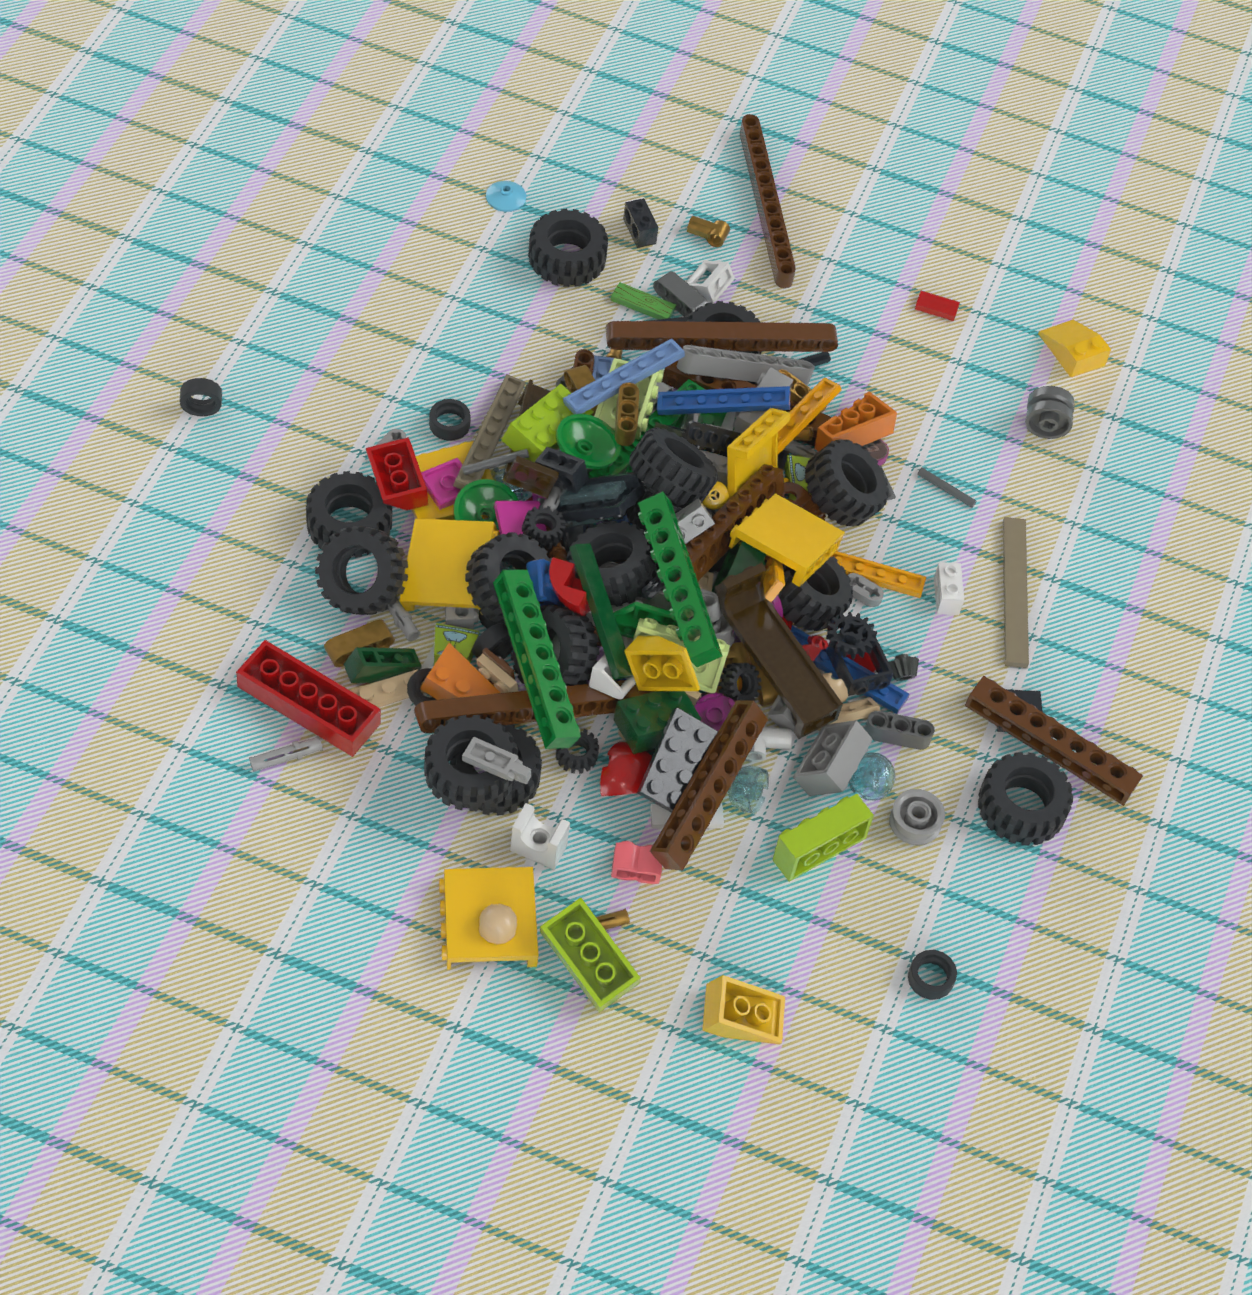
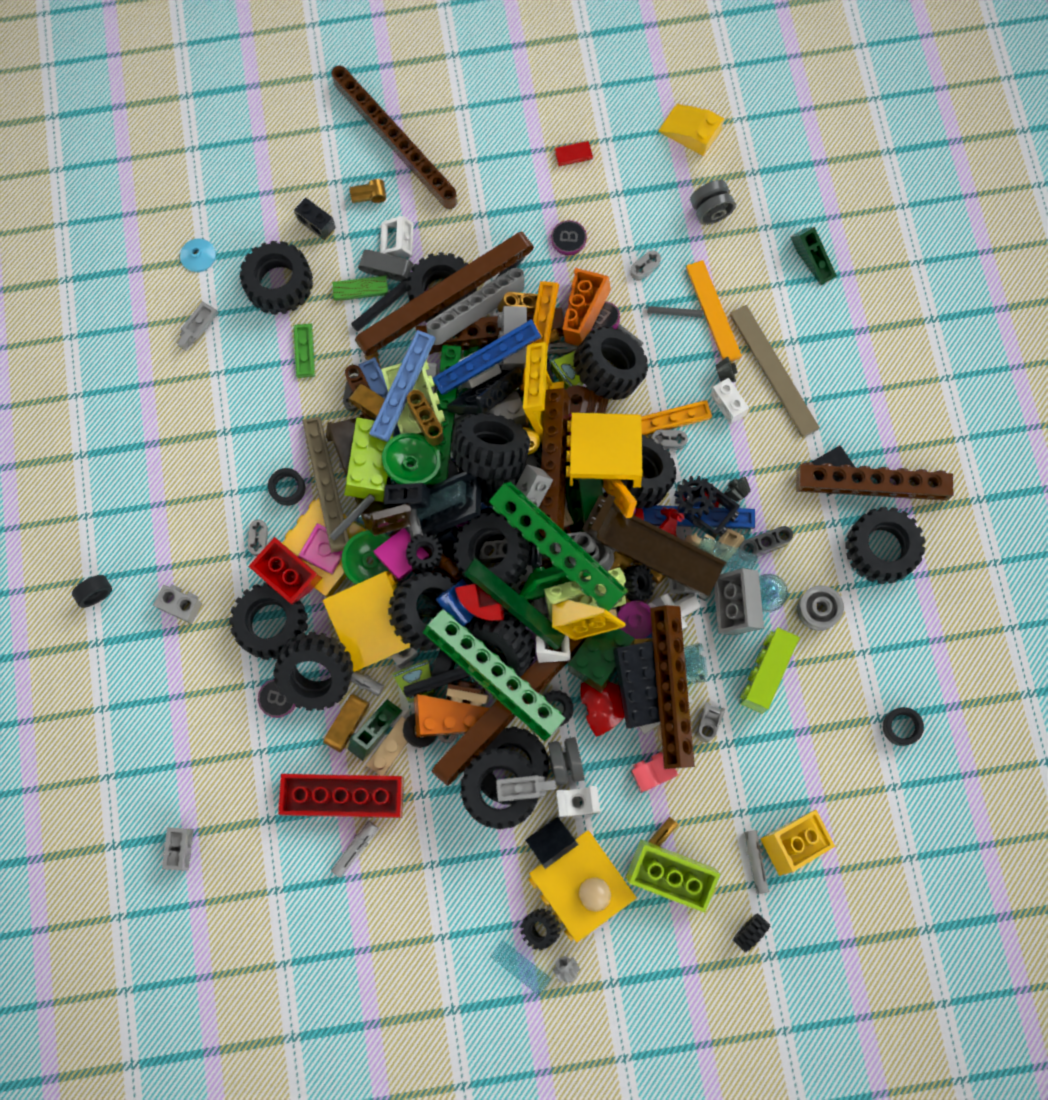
camera: 20 degrees left, 20 degrees up
(116, 650) = (177, 849): none -> light grey brick
(272, 455) = (176, 607): none -> light grey brick
(303, 589) = (272, 702): none -> black tile
(373, 956) = (521, 967): none -> clear light blue tile
(412, 919) = (532, 935): none -> black tyre
(419, 980) = (566, 969): none -> light grey gear
(462, 247) = (196, 325): none -> light grey hinge
(476, 647) = (435, 682): none -> black axle
(486, 858) = (551, 842): none -> black tile
(550, 323) = (304, 350): none -> bright green tile
(554, 794) = (565, 761): none -> dark grey wheel
(635, 1058) = (751, 932): none -> black tyre
(691, 995) = (755, 855): none -> light grey pin
(730, 850) = (710, 718): none -> light grey piece
(852, 709) = (734, 557): none -> clear light blue tile
(882, 370) = (568, 237): none -> black tile
(945, 433) = (643, 262): none -> light grey beam
(967, 559) = (726, 370): none -> pearl dark grey piece
(987, 509) = (713, 311): none -> light orange tile
(1127, 513) = (813, 254): none -> dark green slope

